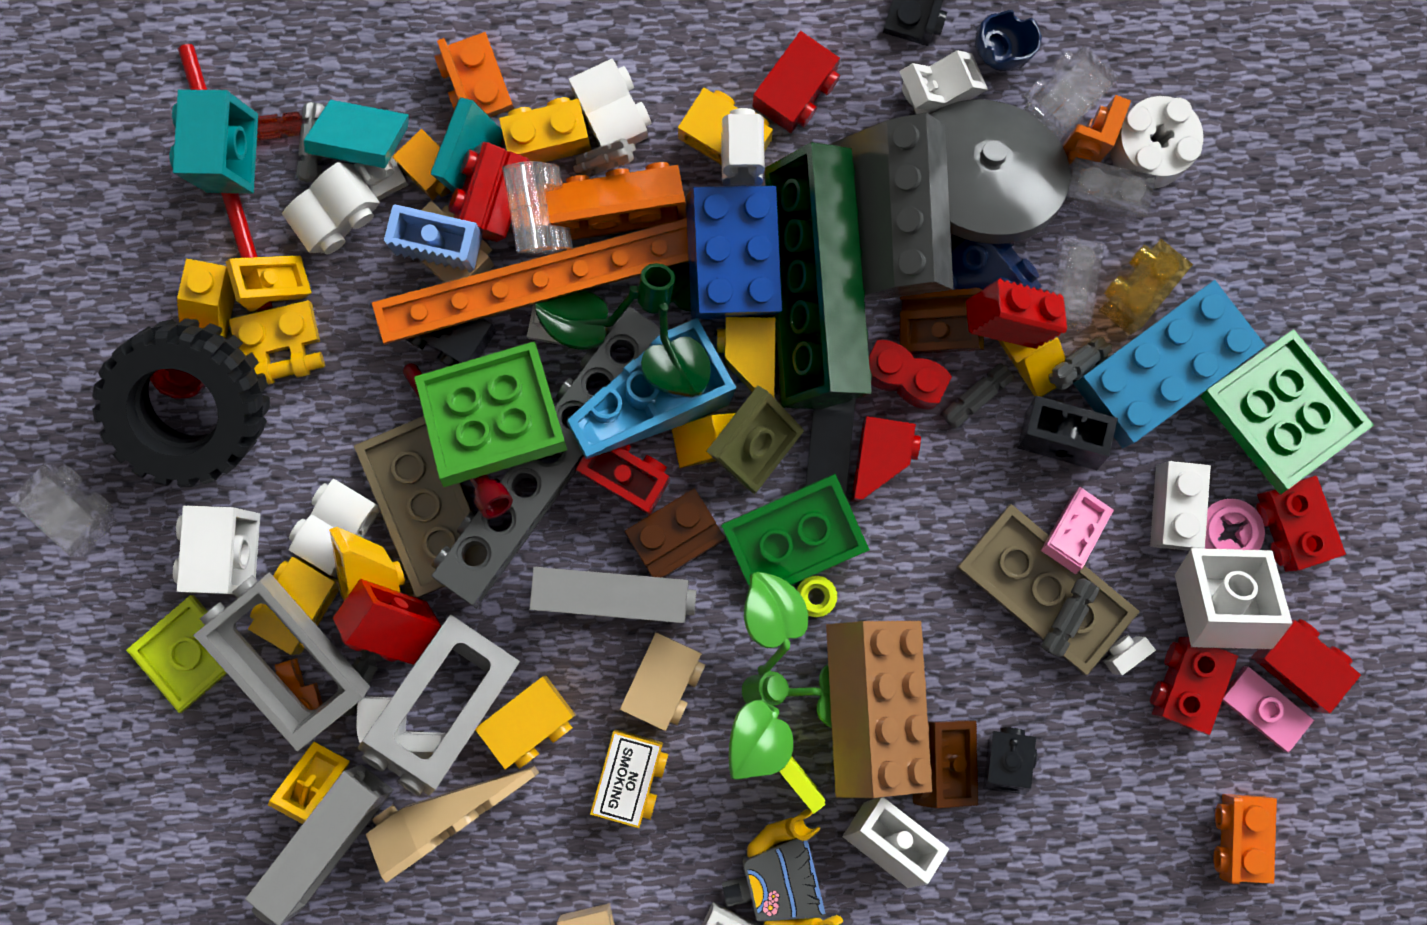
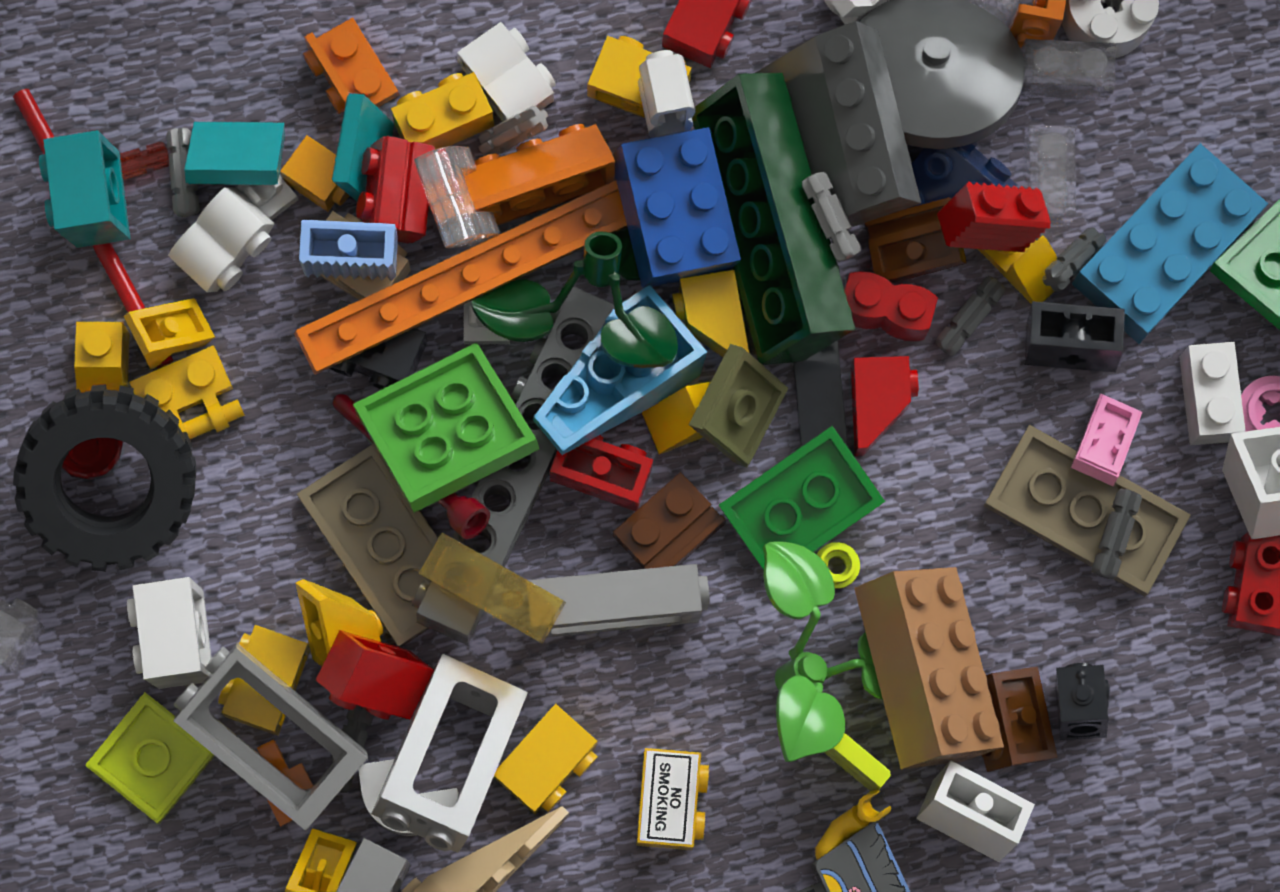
camera: 15 degrees left, 5 degrees down
(334, 507) = (276, 601): white brick -> none
(500, 568) = (492, 587): none -> clear yellow tile
(662, 681) = (687, 686): tan brick -> none
(869, 287) = (831, 216): none -> light grey axle
(1128, 653) = (1186, 562): white plate -> none
(1145, 287) = (1129, 164): clear yellow brick -> none

